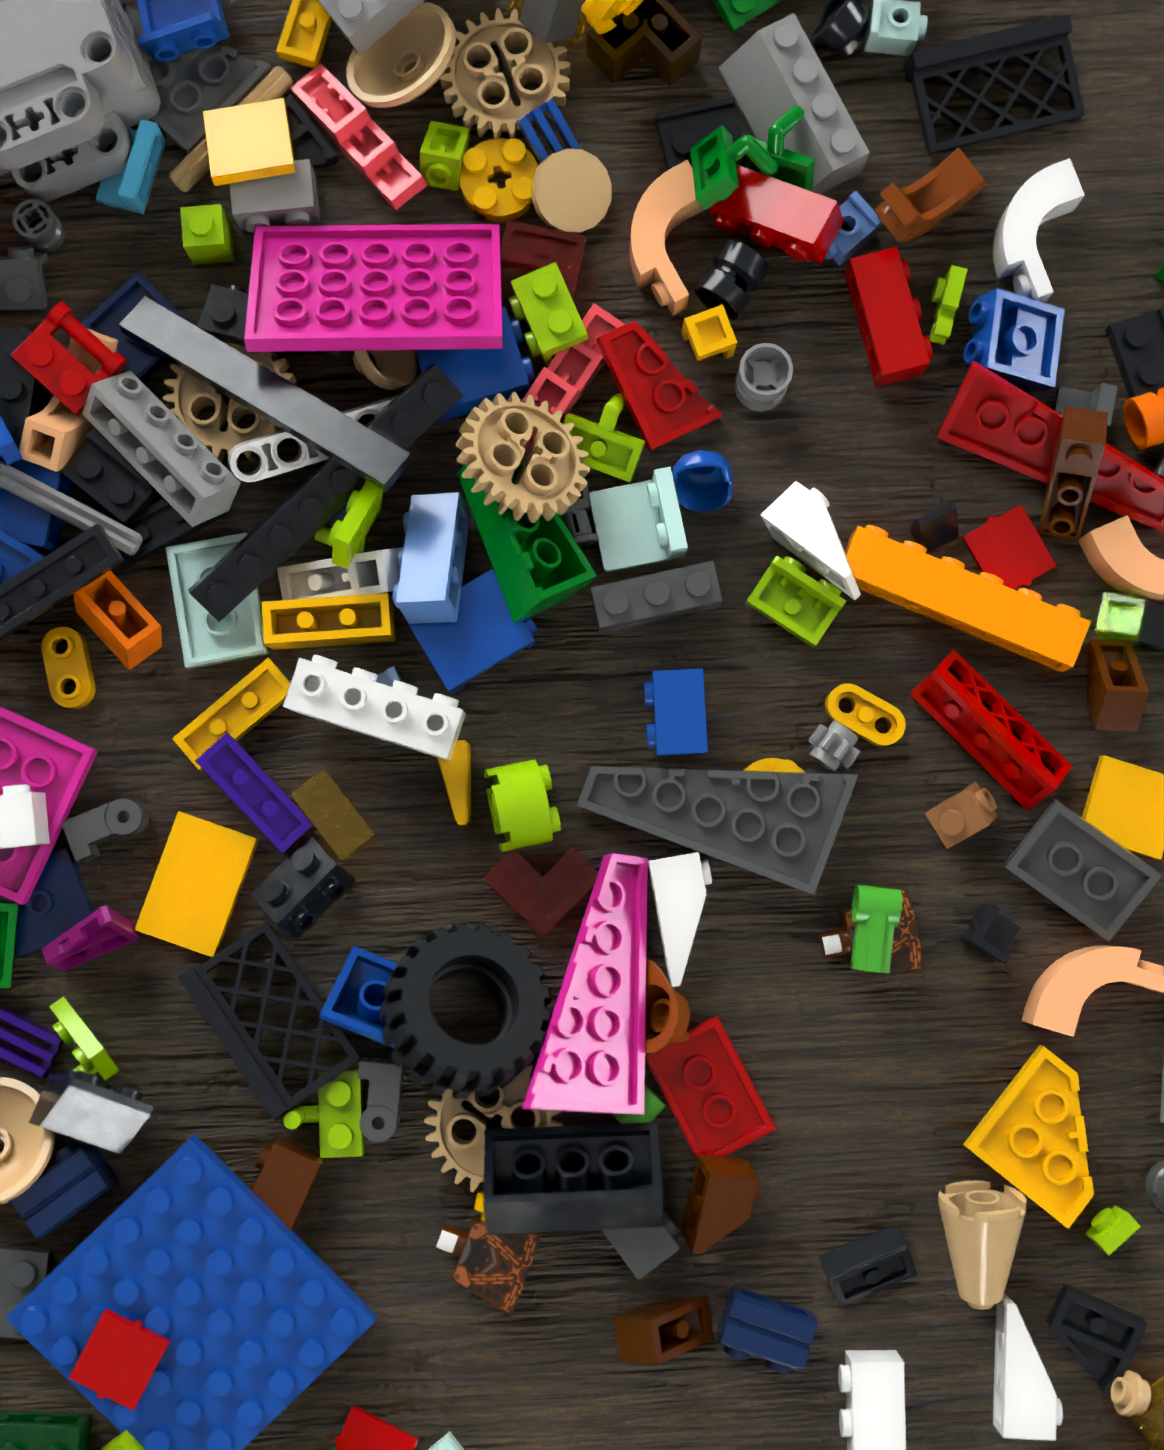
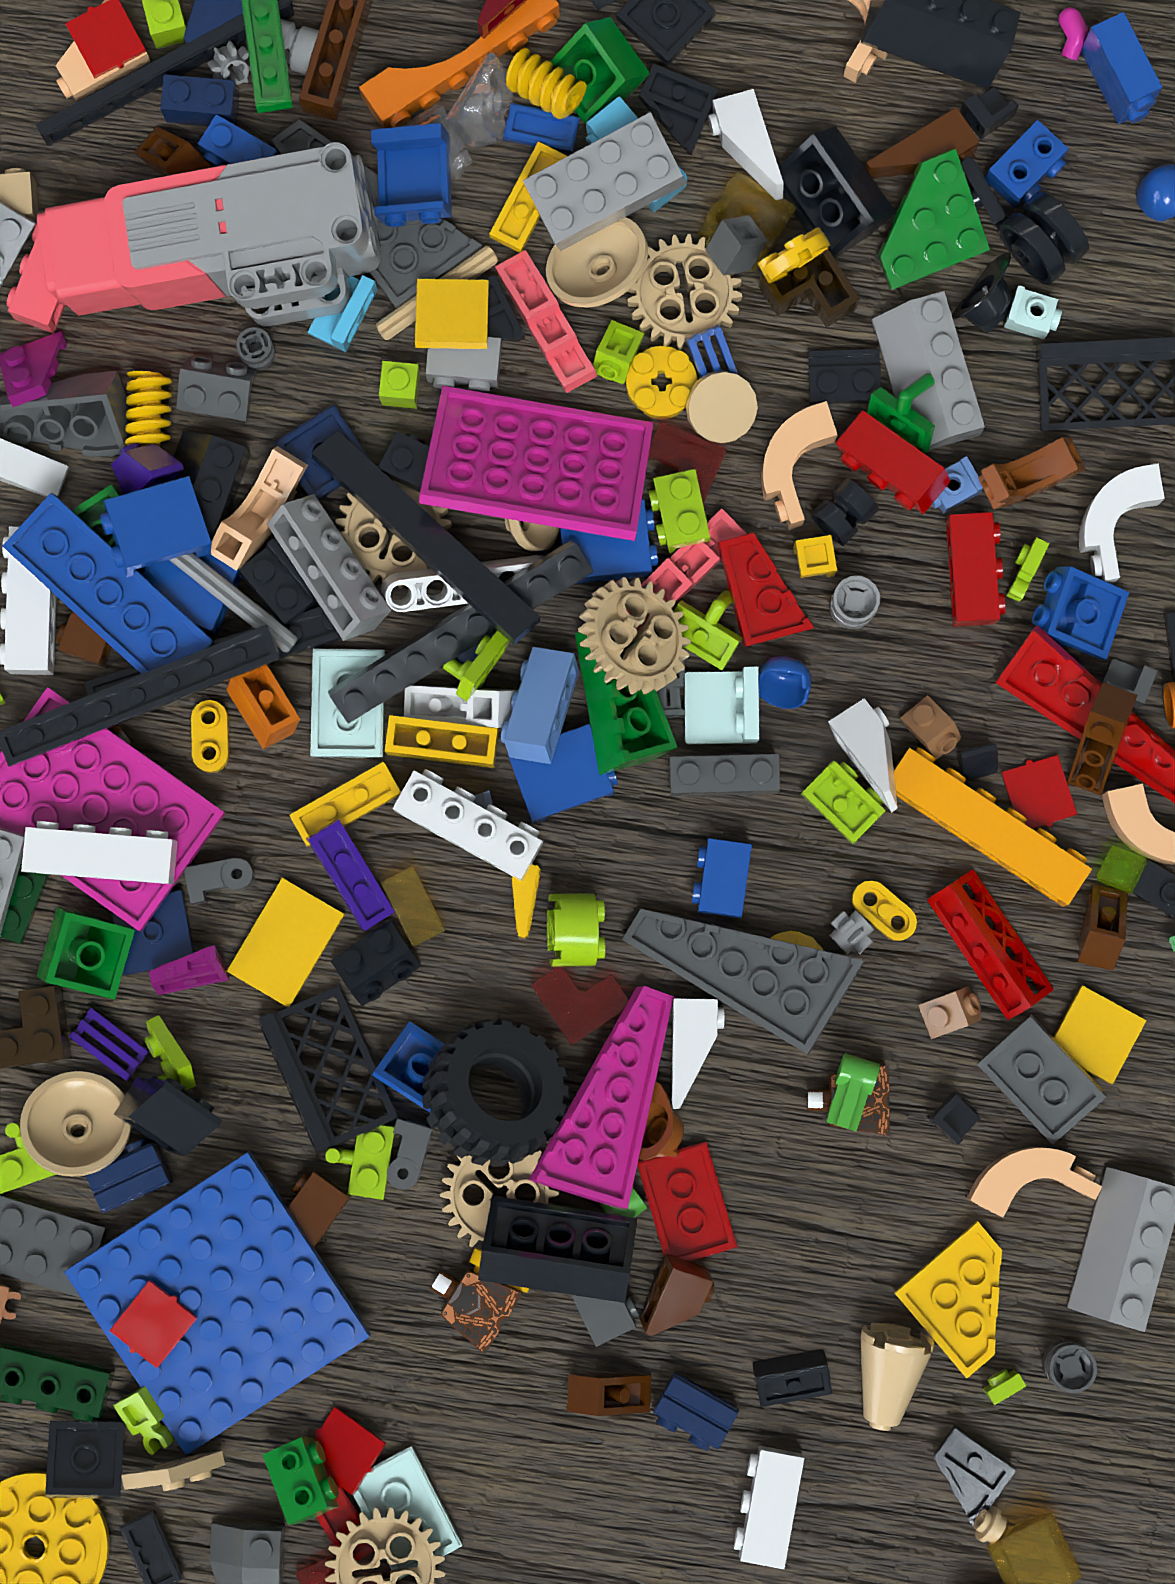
camera: 15 degrees right, 0 degrees up
(57, 366) = (254, 481): red plate -> none
(715, 164) = (848, 414): green plate -> none
(876, 499) = (932, 727): none -> medium nougat bracket
(1023, 1394) = (901, 1502): white slope -> none

